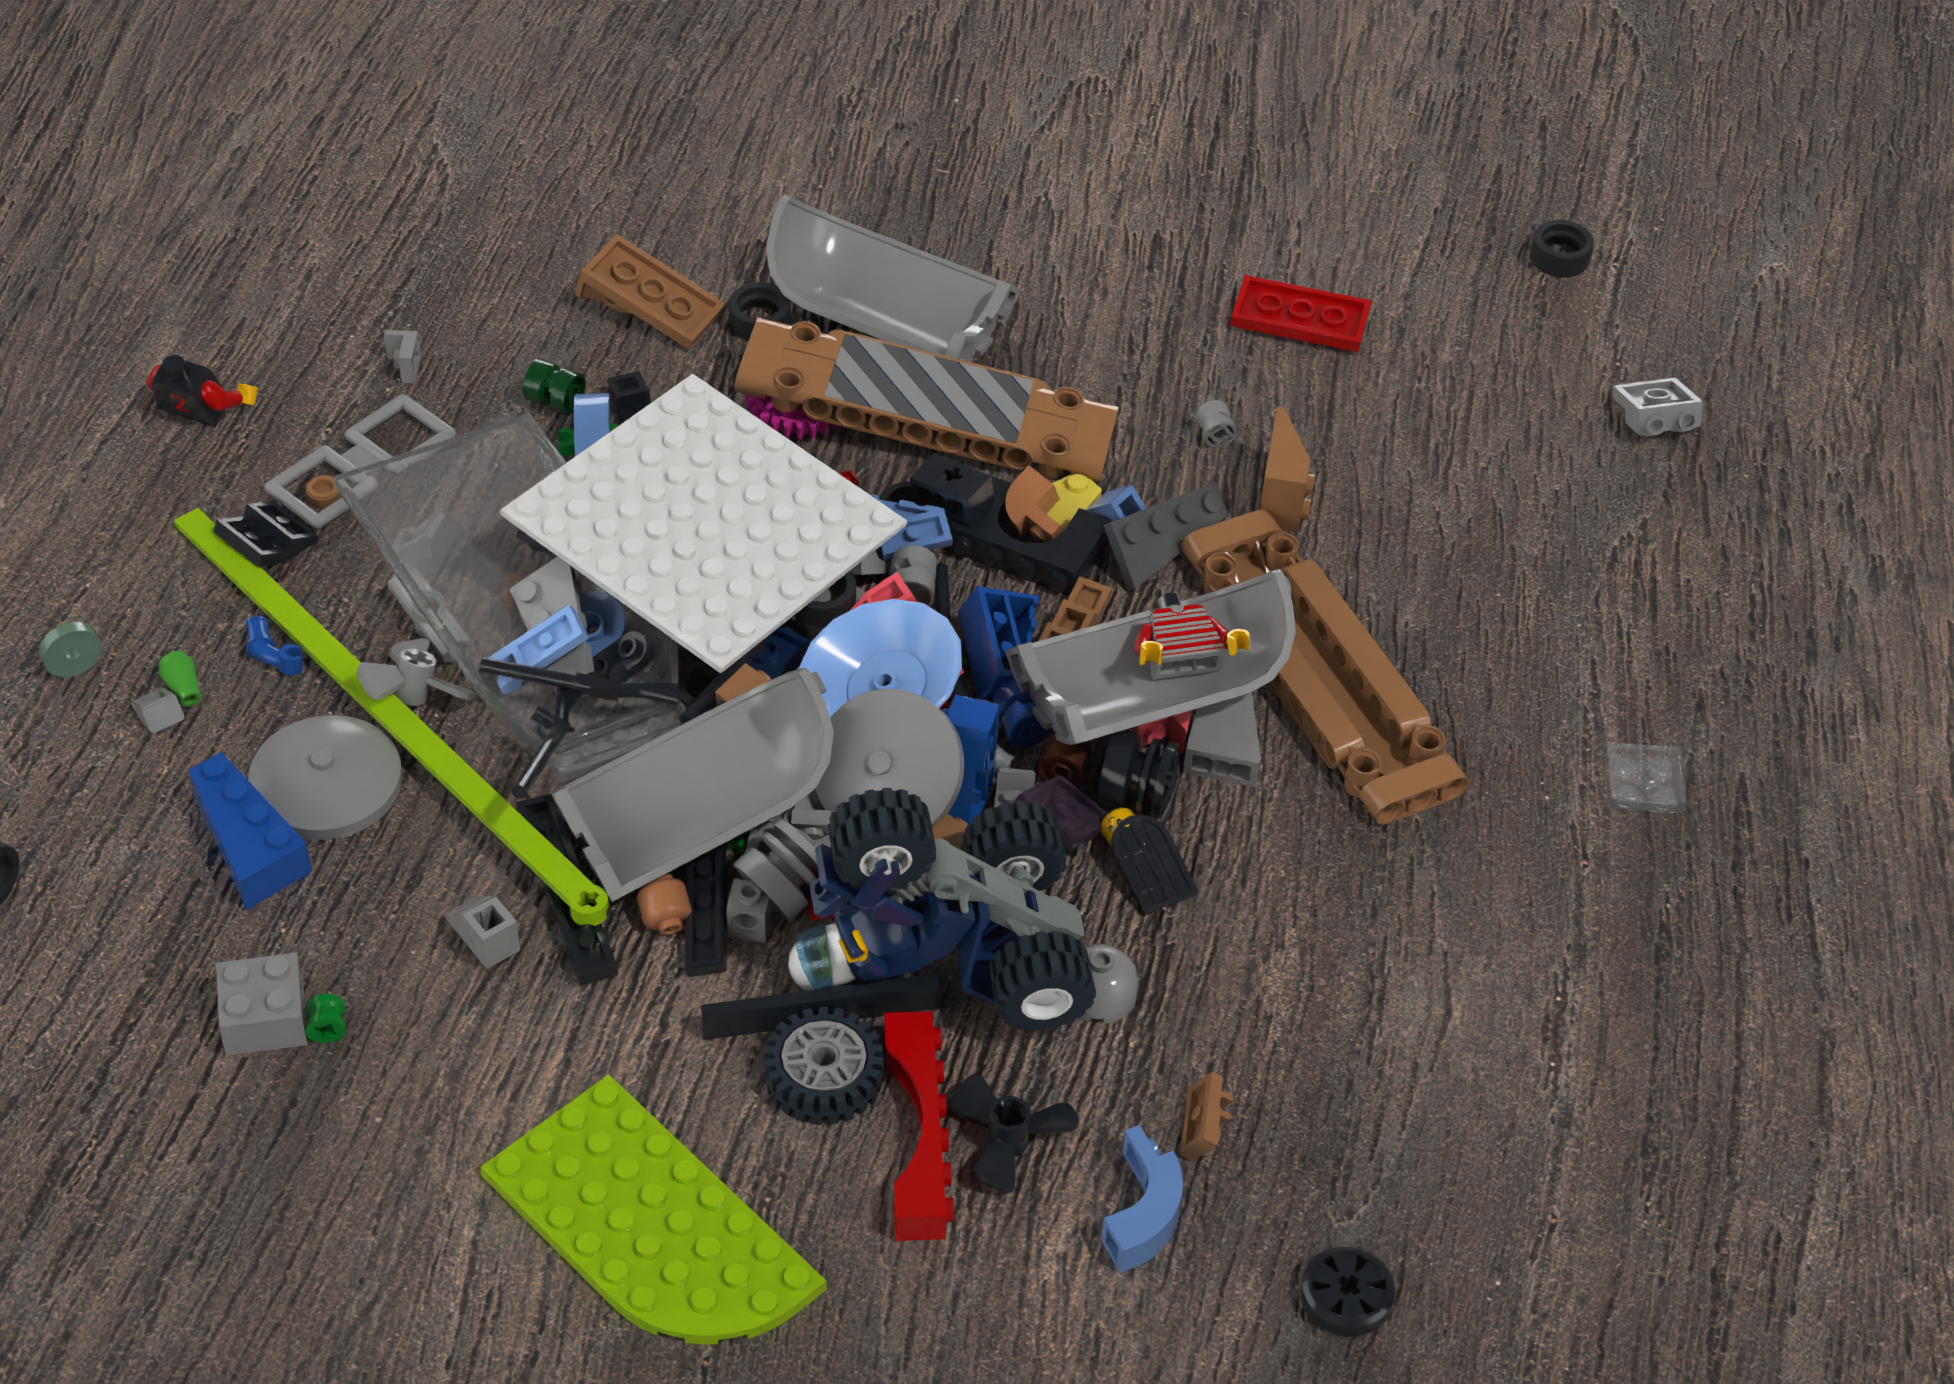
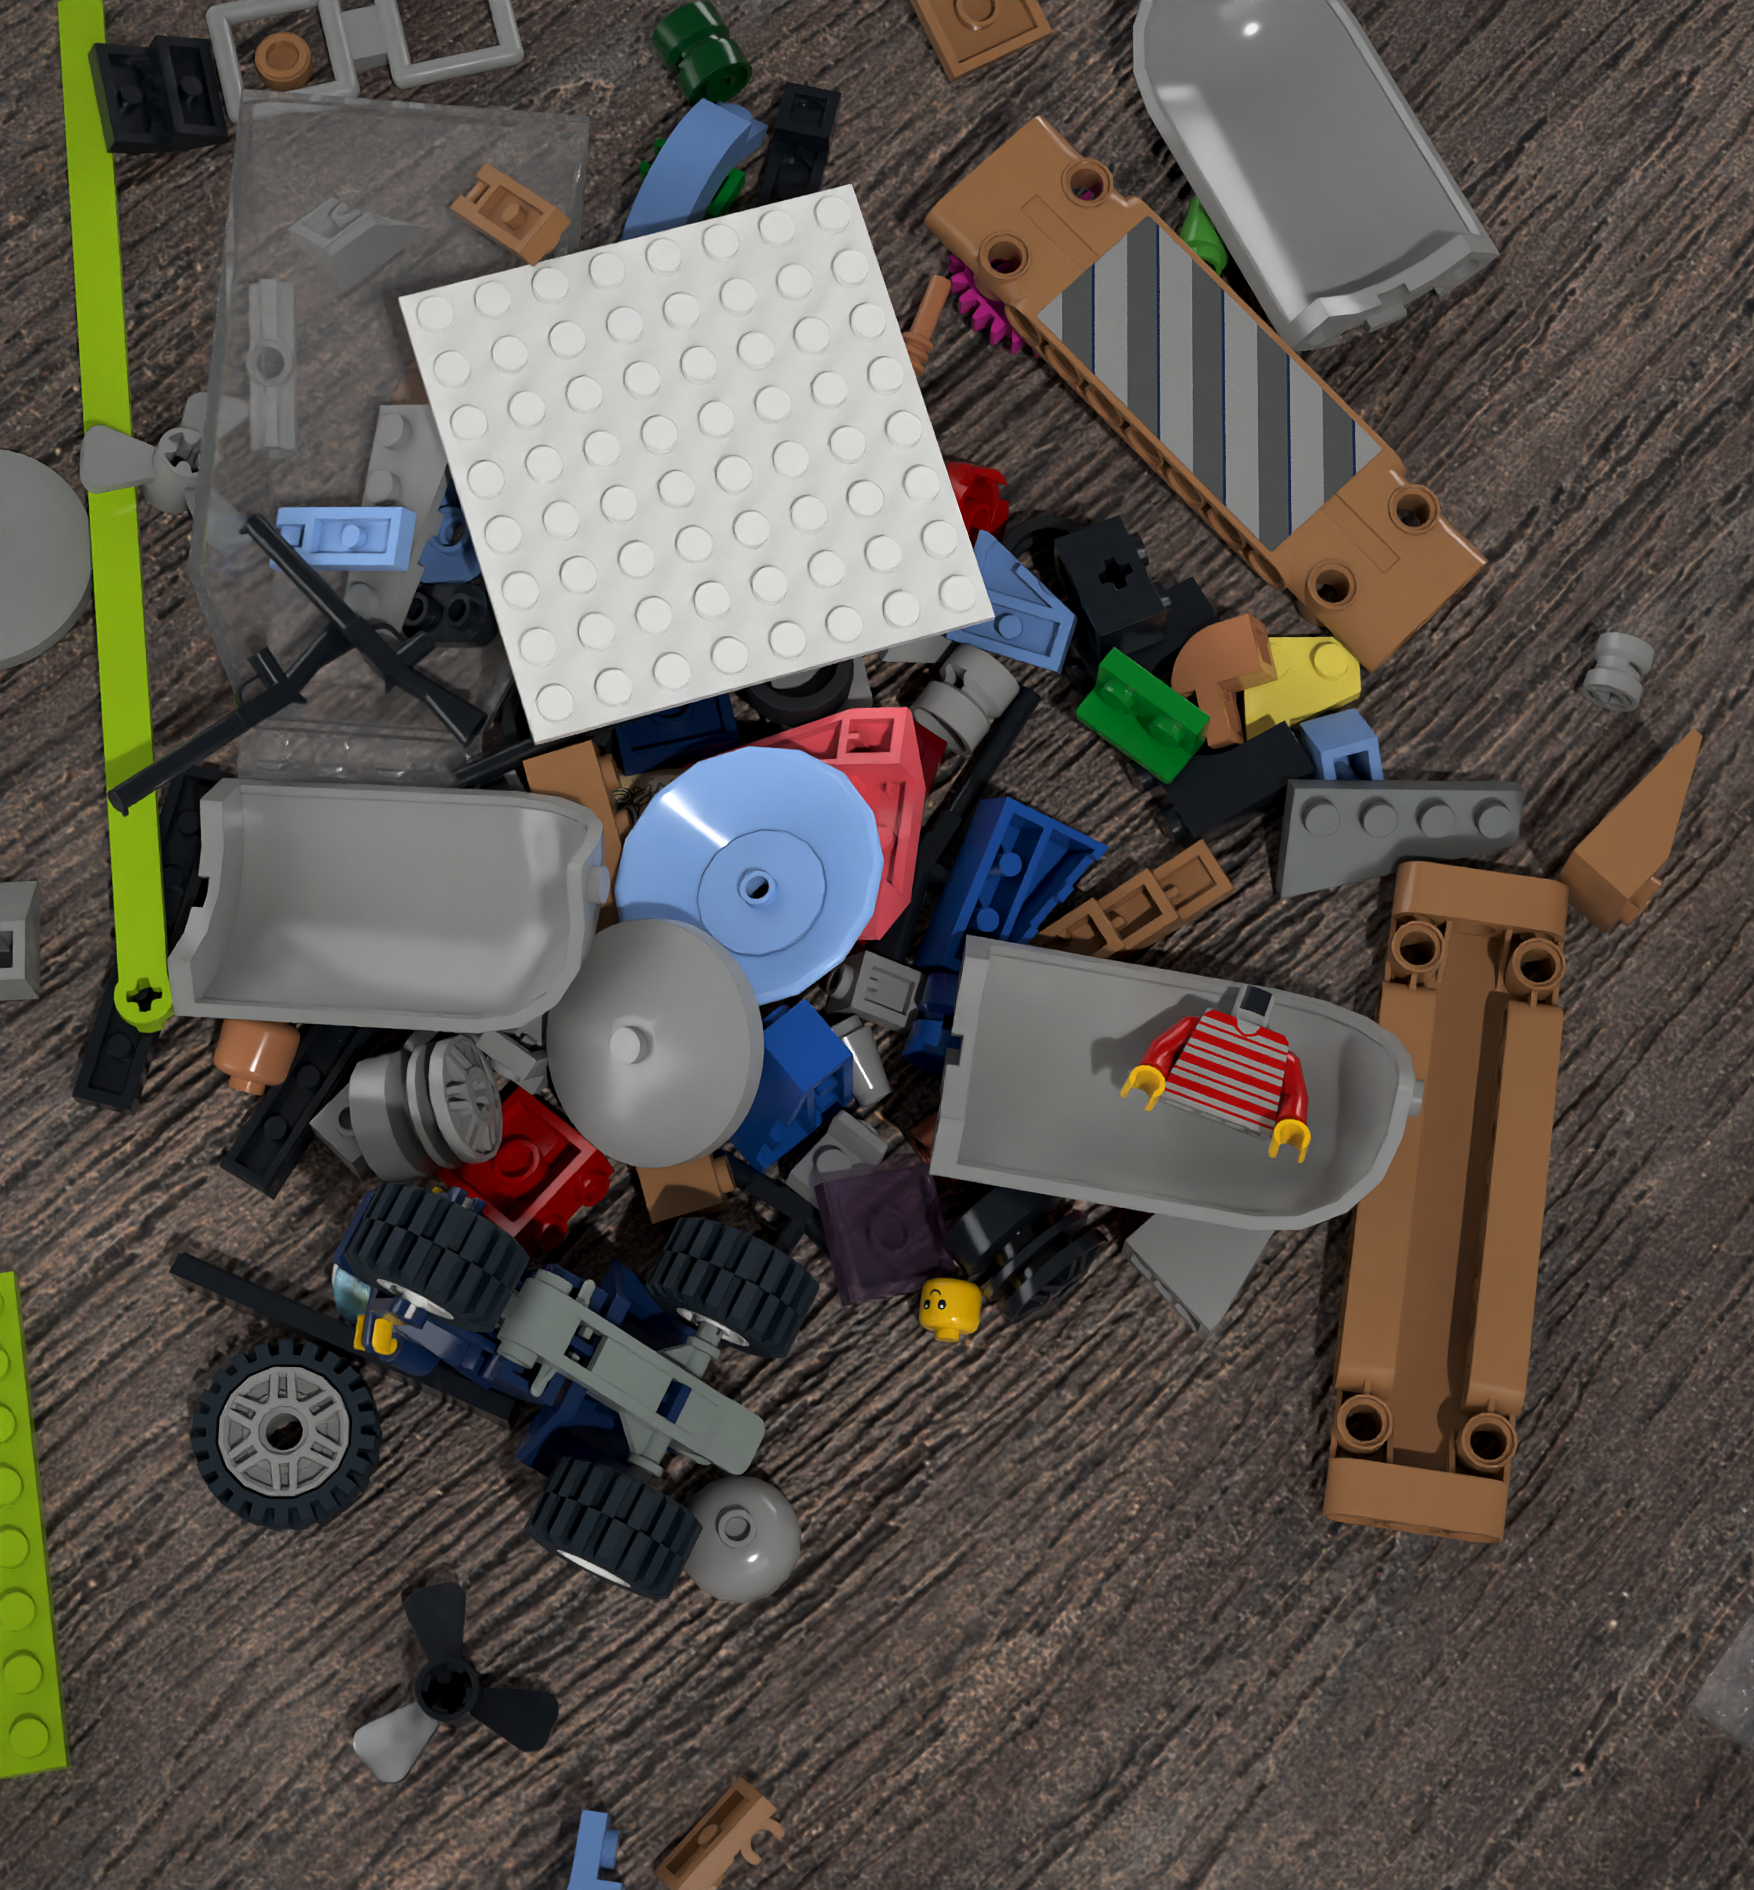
camera: 35 degrees right, 25 degrees up
(262, 647) = (30, 298): blue piece -> none
(525, 459) = (511, 215): none -> medium nougat plate
(752, 296) = (1083, 111): black tyre -> none
(920, 1190) = (266, 1720): red arch -> none
(1014, 526) = (1143, 717): none -> green bracket
(1151, 864) = (948, 1391): black window -> none

